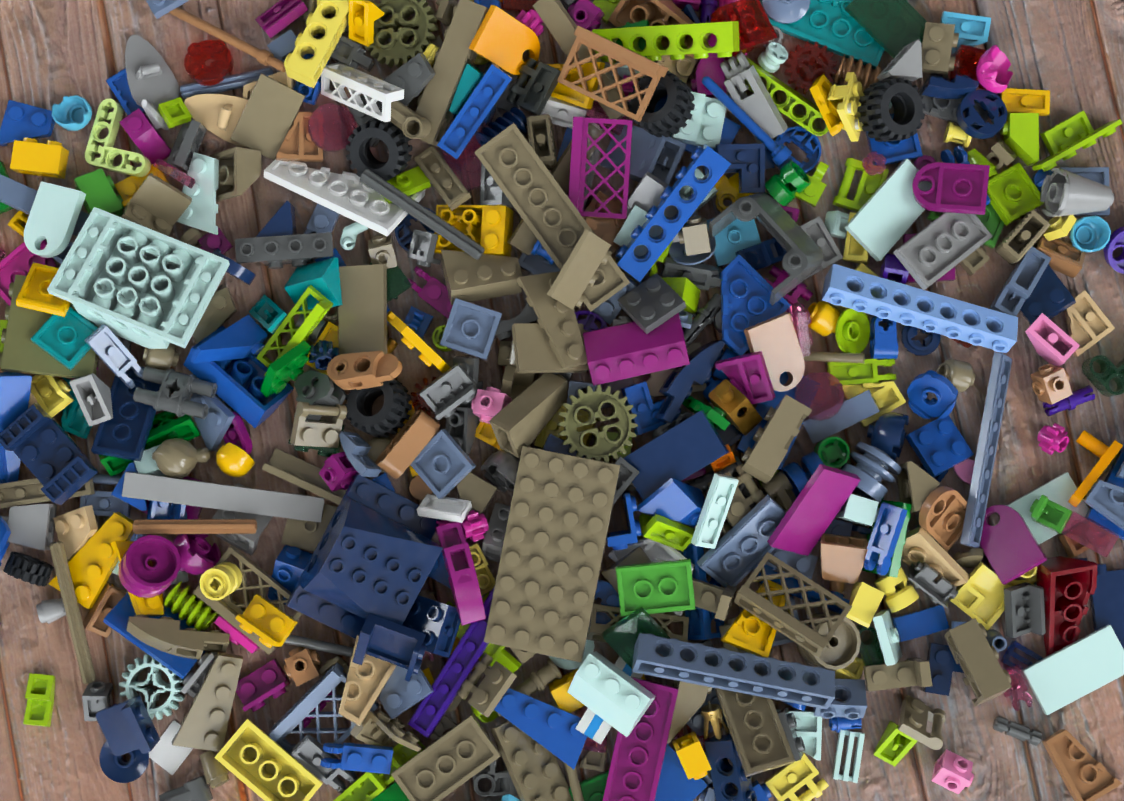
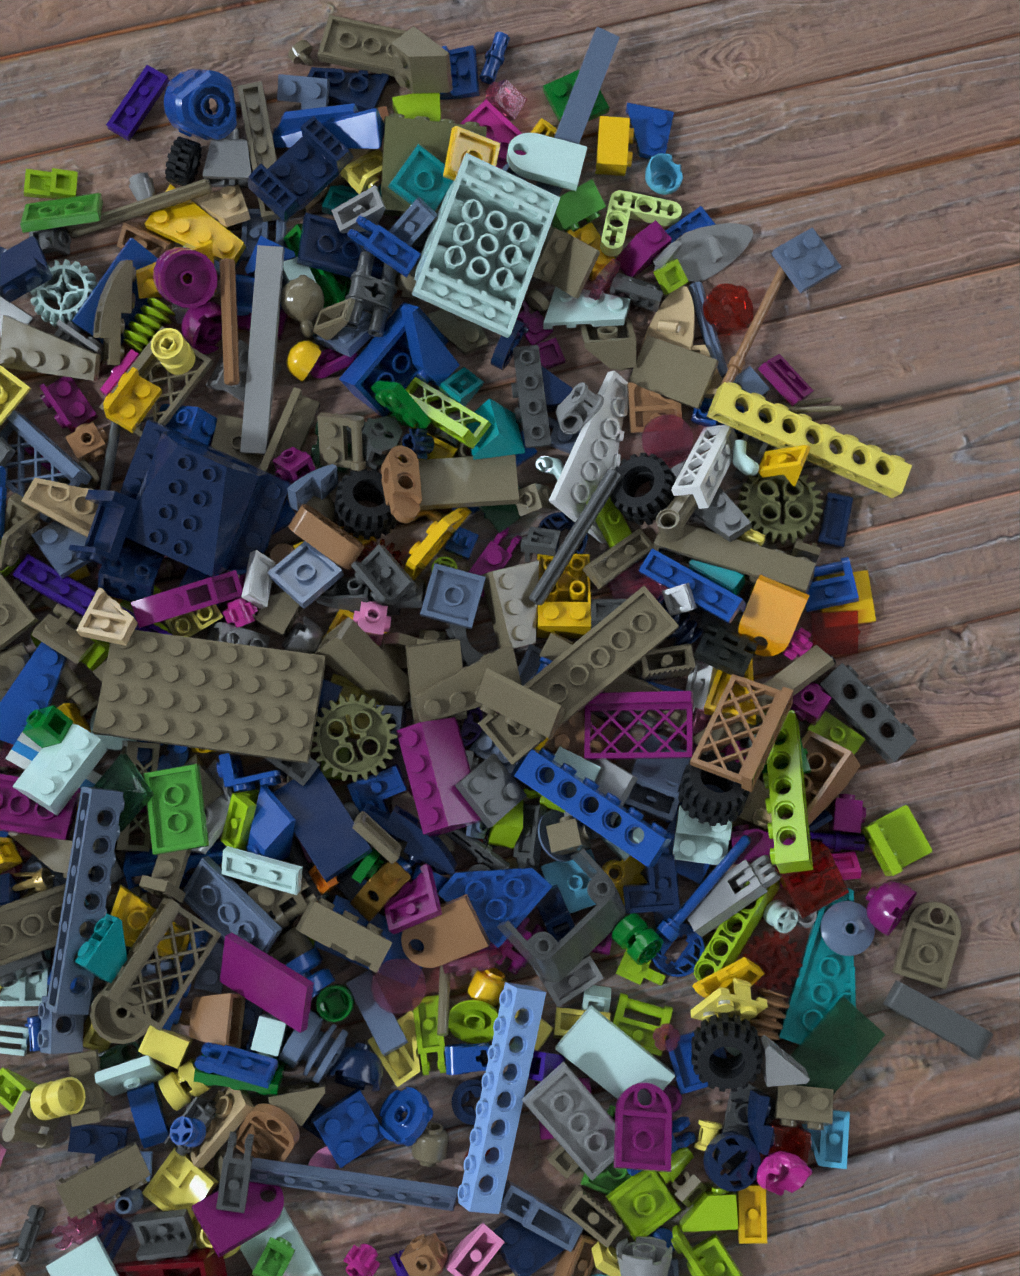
camera: 75 degrees right, 5 degrees down
(72, 688) = (61, 212): none -> bright green tile
(131, 374) = (386, 246): none -> blue hinge
(198, 426) = (333, 318): none -> dark tan slope
(240, 229) = (550, 354): none -> magenta tile
(299, 206) = (581, 405): none -> light grey piece
(358, 58) = (742, 461): none -> light aqua arm
(478, 646) = (107, 620): none -> tan wing
(487, 122) = (679, 599): none -> light grey tile
(574, 703) = (47, 726): none -> green brick
(689, 406) = (377, 837): none -> dark tan tile
(779, 652) = (105, 950): none -> teal slope
(907, 699) = (57, 1098): none -> light yellow wheel
(938, 592) = (184, 1125): none -> blue wheel
(979, 543) = (235, 1176): none -> dark grey hinge

